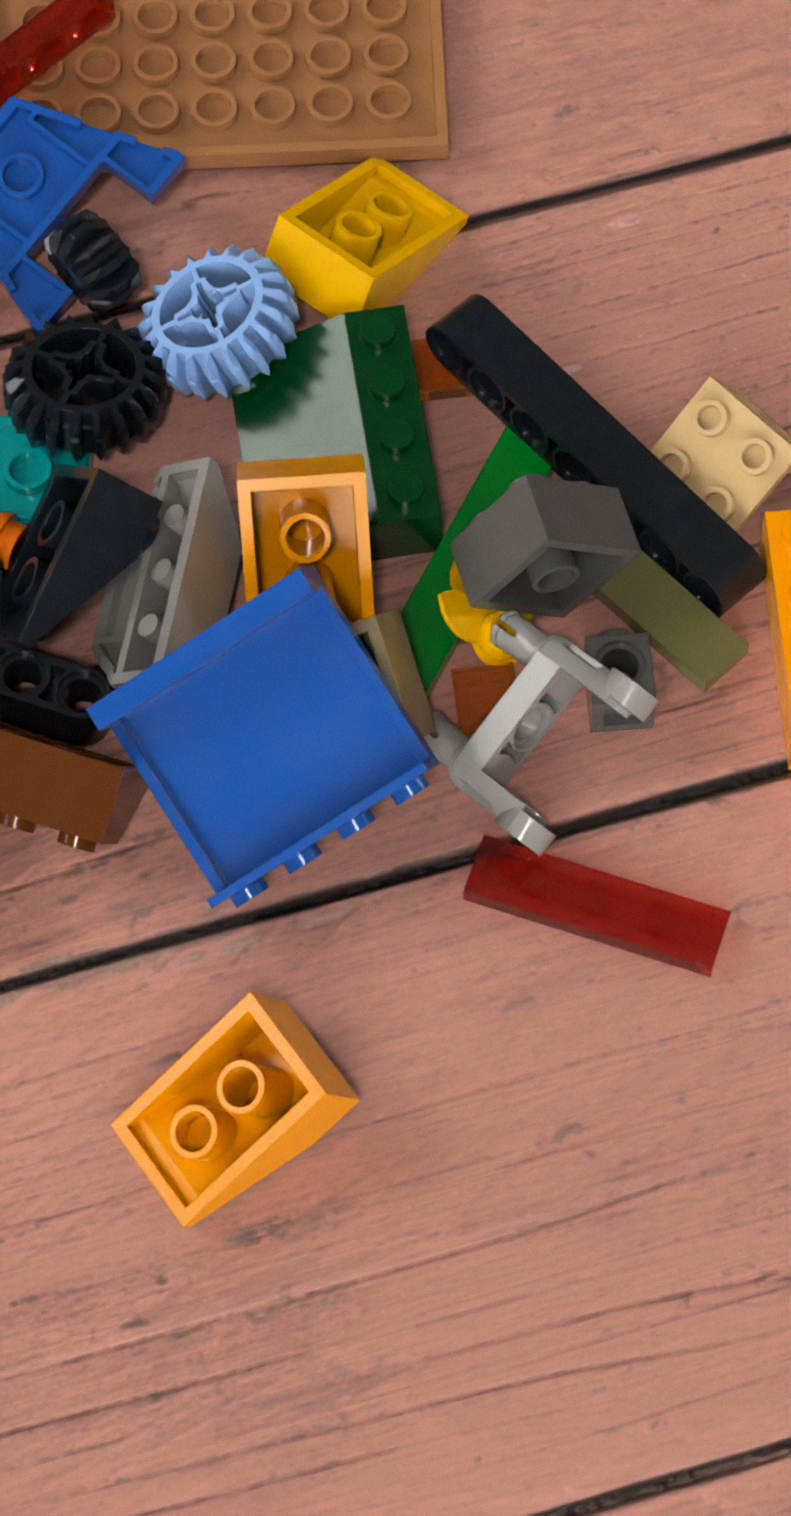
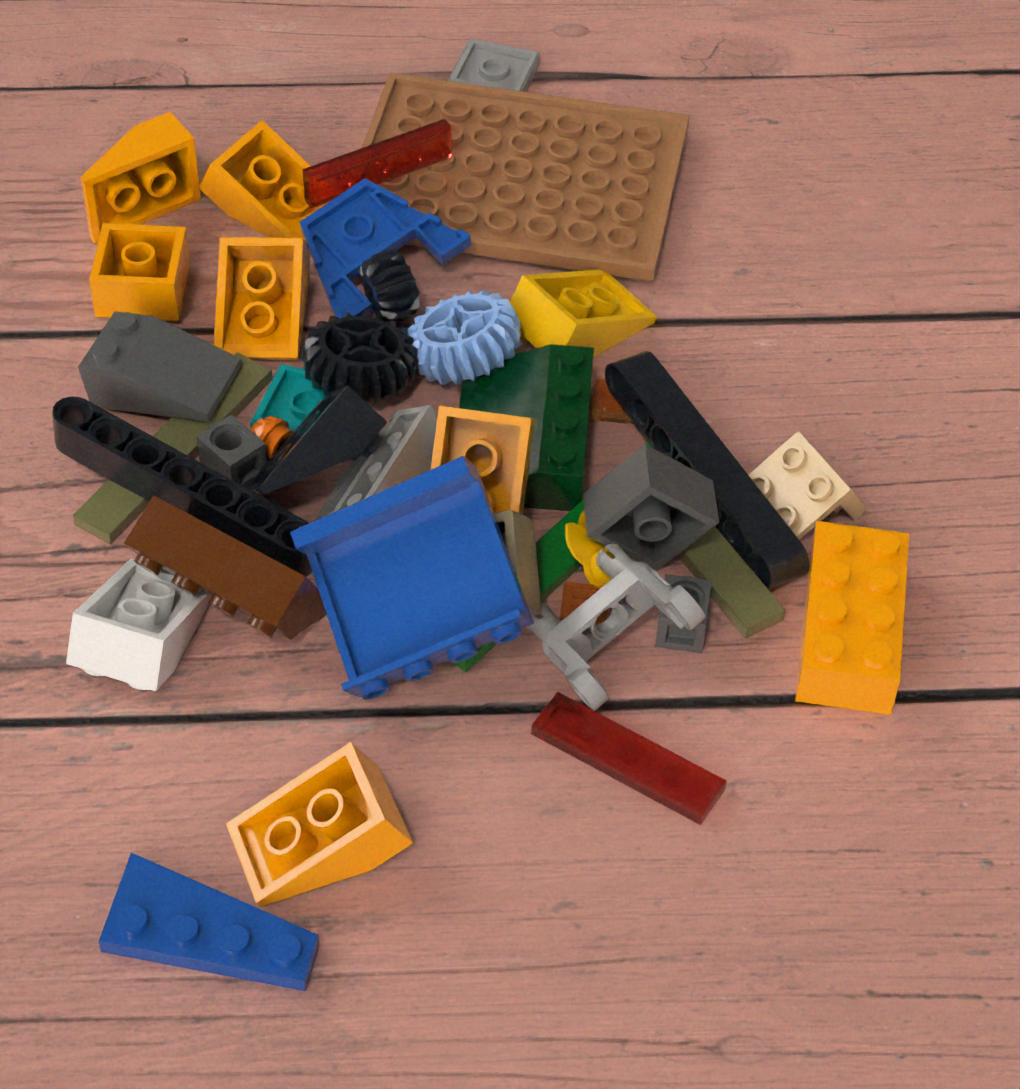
camera: 10 degrees right, 15 degrees down
(118, 1277) = (198, 928): none -> blue wing

